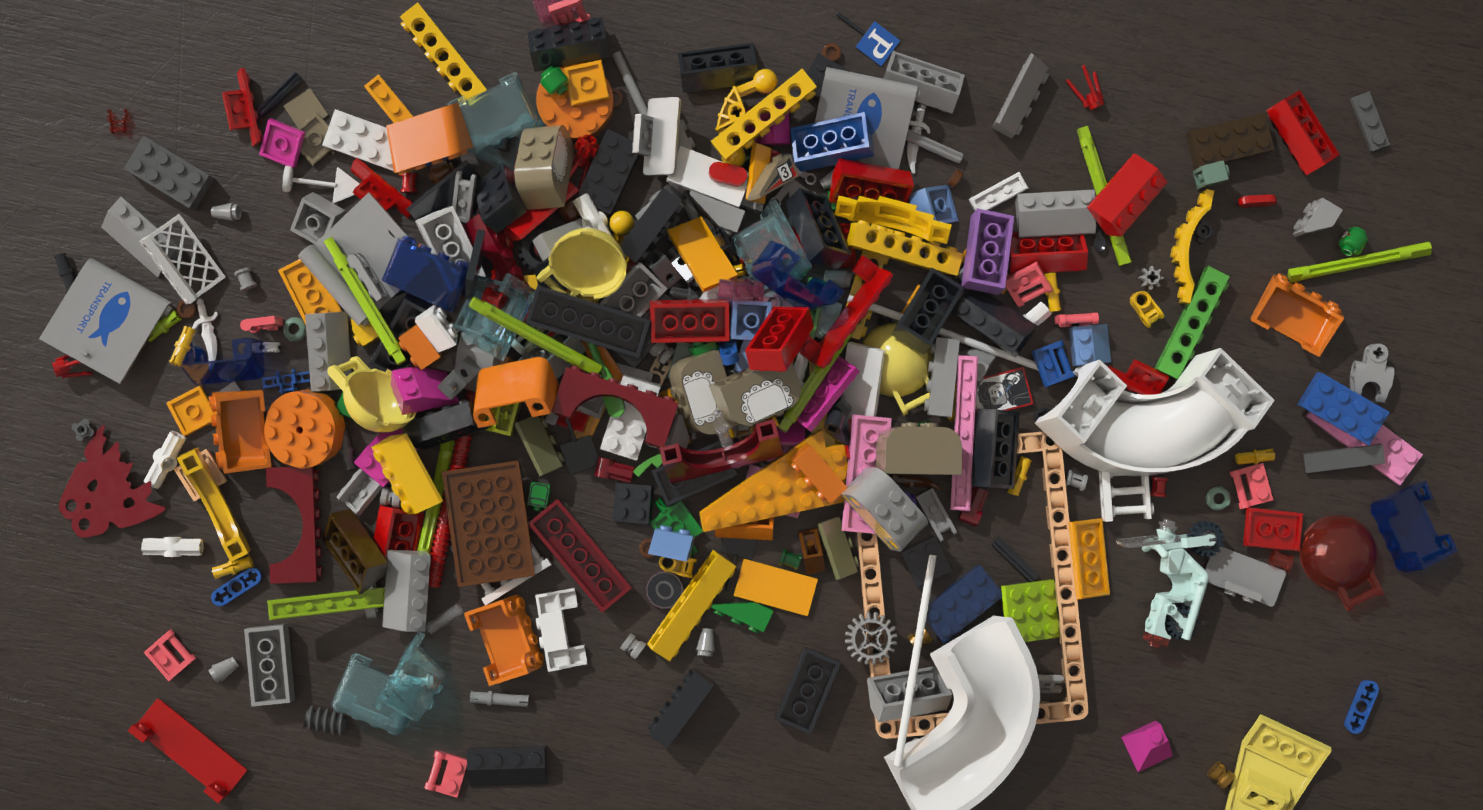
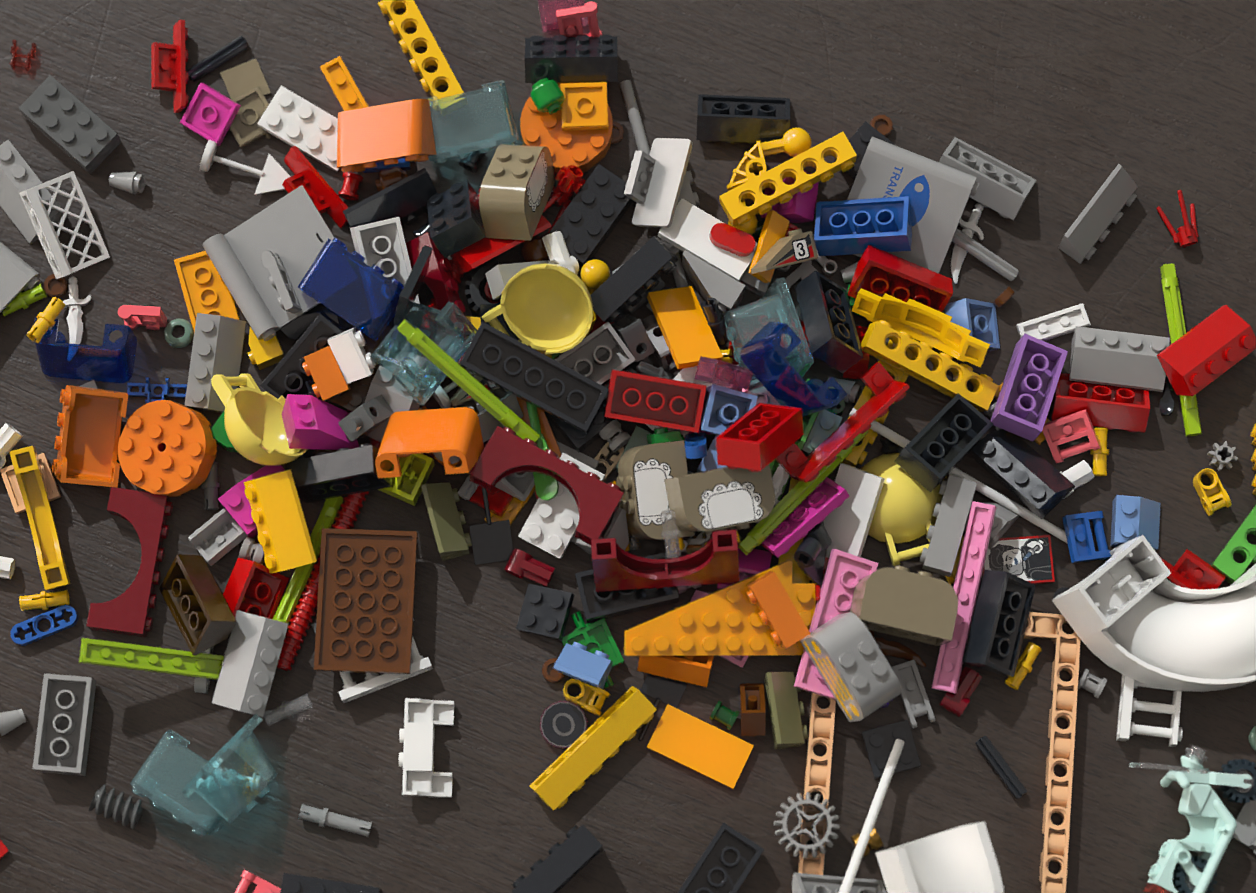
camera: 10 degrees right, 10 degrees down
(191, 410) = (35, 406): light orange tile -> none
(245, 279) = (133, 262): light grey bush -> none
(271, 347) = (146, 347): white bush -> none
(315, 217) = (231, 205): light grey slope -> none
(365, 302) = (272, 310): lime piece -> none
(464, 196) = (414, 209): light grey hinge -> none
(494, 298) = (433, 332): red bush -> none
(507, 639) = (358, 746): orange windscreen -> none
(539, 495) = (433, 581): green brick -> none
(580, 555) = (469, 661): dark red brick -> none
(633, 646) = (512, 785): light grey wheel -> none
(655, 460) = (567, 569): bright green slope -> none
(706, 643) = (602, 799): light grey cone -> none
(750, 613) = (663, 771): green slope -> none
(876, 42) = (936, 124): blue piece -> none
(962, 603) = (926, 806): dark blue brick -> none
(1032, 609) = (1013, 829): lime plate -> none
(1083, 319) = (1111, 488): coral plate -> none
(1089, 558) = (1092, 780): light orange tile -> none
(1158, 486) = (1192, 709): red bush -> none

